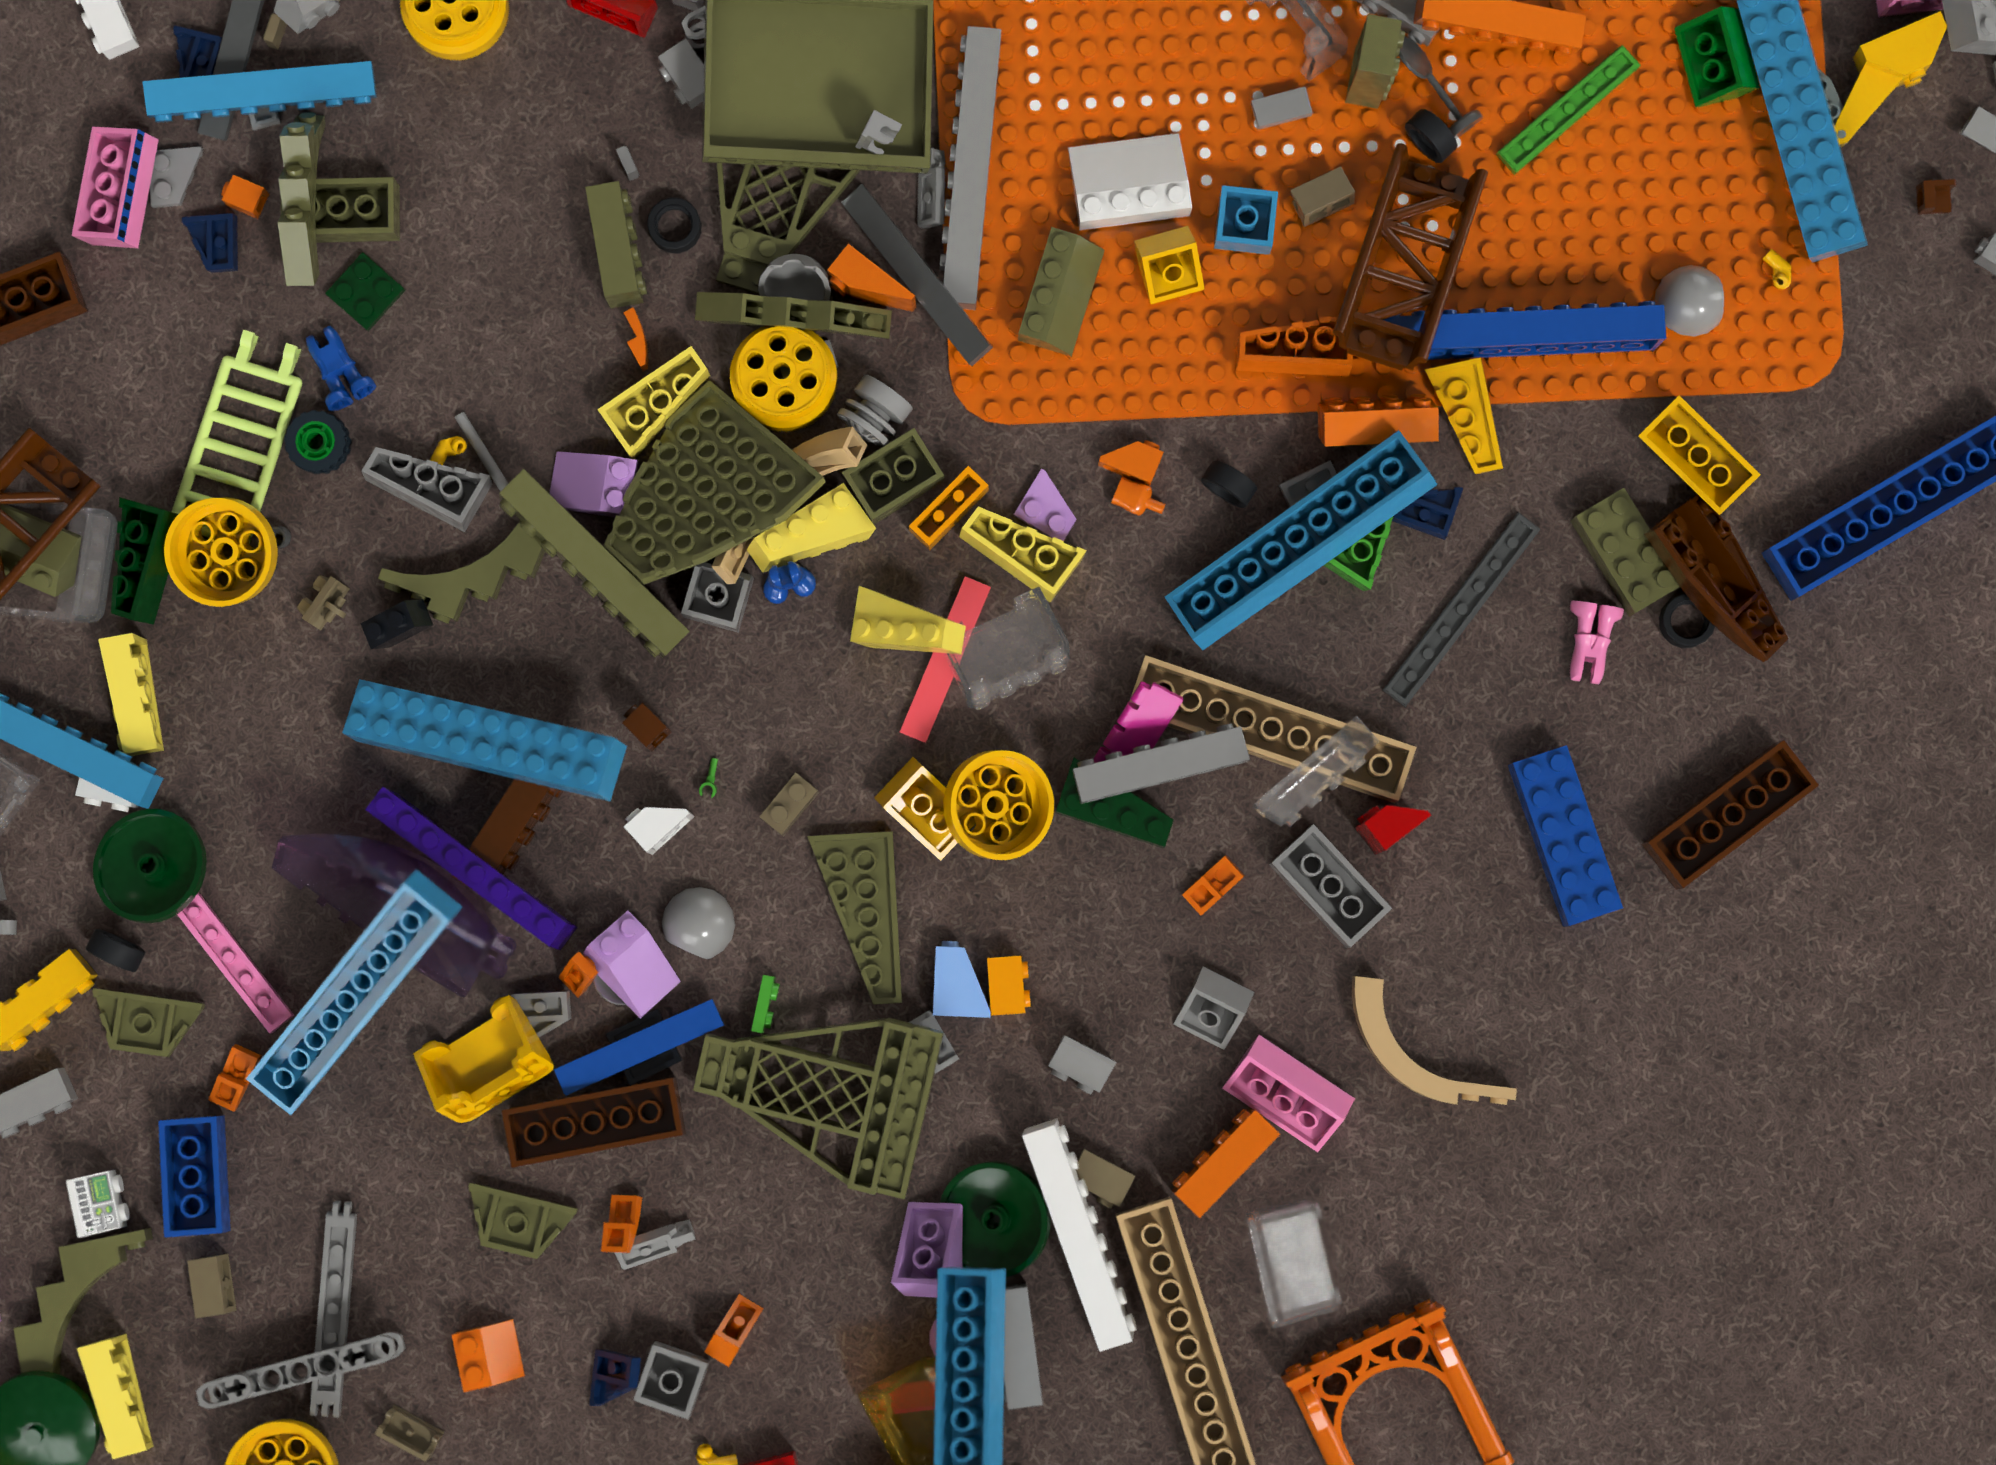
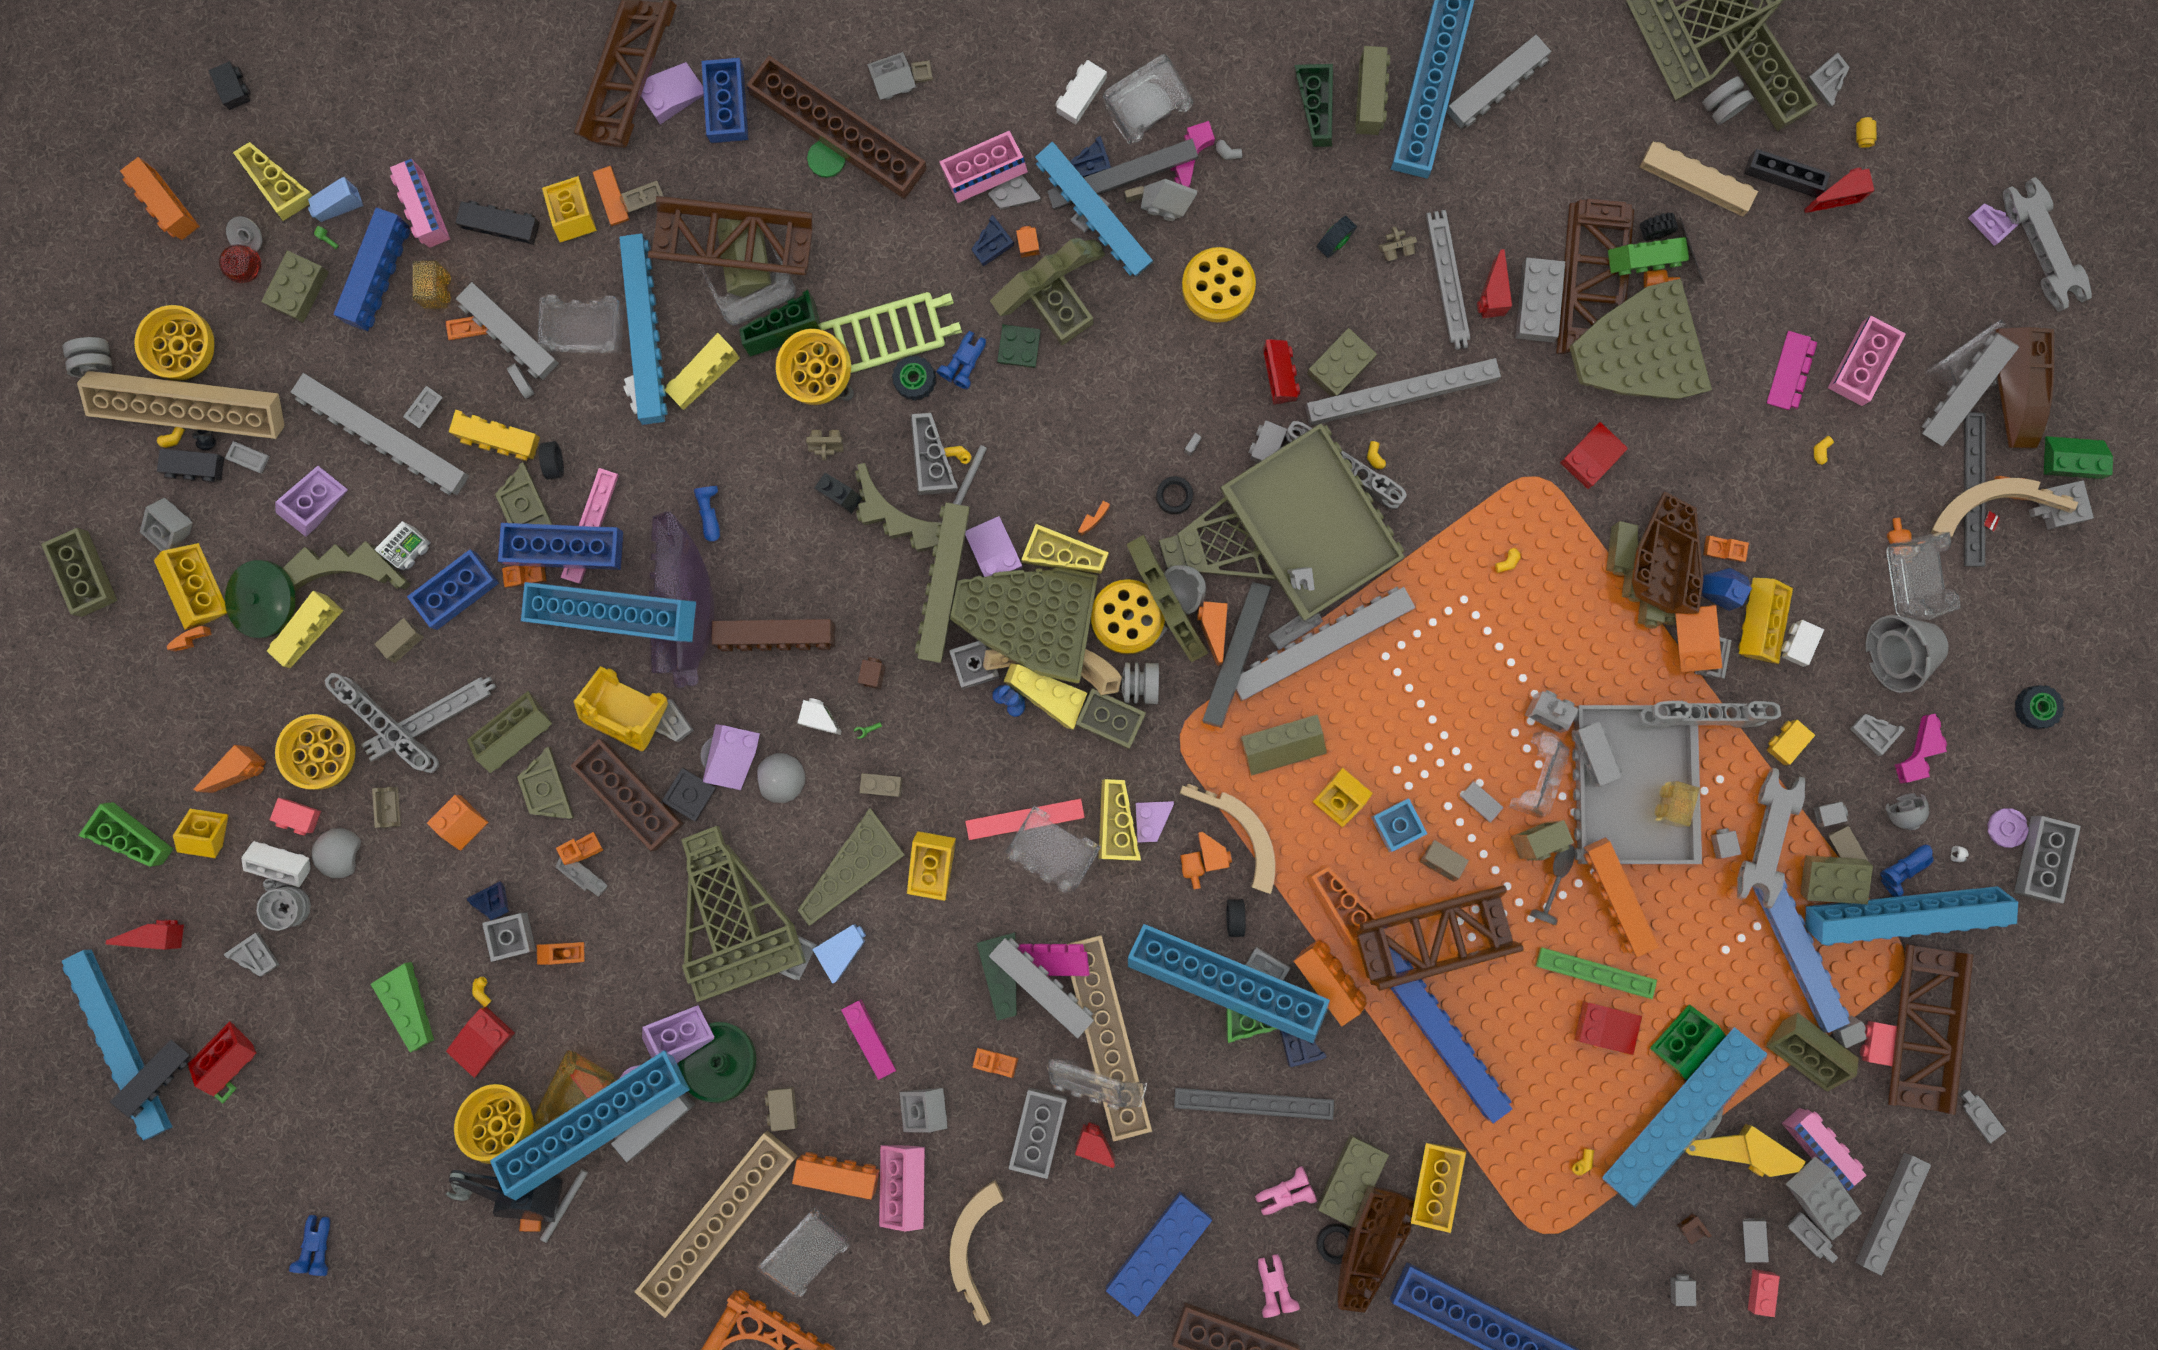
camera: 65 degrees right, 0 degrees up
(149, 866) = (611, 447): dark green dish -> none
(231, 1005) = (560, 546): none -> blue brick
(323, 804) = (710, 524): none -> blue piece
(418, 1220) = (509, 732): none -> olive slope
(470, 869) = (727, 580): dark purple arch -> none
(485, 740) = (801, 589): dark azure brick -> none
(578, 974) = (705, 730): orange plate -> none
(614, 244) = (1138, 469): olive brick -> none
(639, 1047) = (686, 792): blue tile -> none
(763, 1017) = (765, 844): bright green plate -> none
(900, 626) = (1025, 779): light yellow wedge -> none
(948, 508) = (1113, 763): light orange brick -> none
(1007, 986) = (858, 980): light orange brick -> none
(1031, 794) = (948, 930): yellow wheel -> none
(1078, 1234) = (739, 1117): white brick -> none
(1081, 1064) = (840, 1054): light grey slope -> none
(1086, 1019) = (868, 1039): none -> dark pink slope
(1130, 181) = (1377, 741): white slope -> none
(1139, 392) = (1261, 842): none -> tan arch
(1431, 135) = (1523, 902): black tyre -> none
(1468, 407) = (1375, 1030): yellow wing -> none
(1640, 138) = (1608, 1028): none -> red slope
(1685, 725) = (1272, 1283): none -> bright pink piece
(1691, 300) = (1529, 1121): light grey cylinder -> none

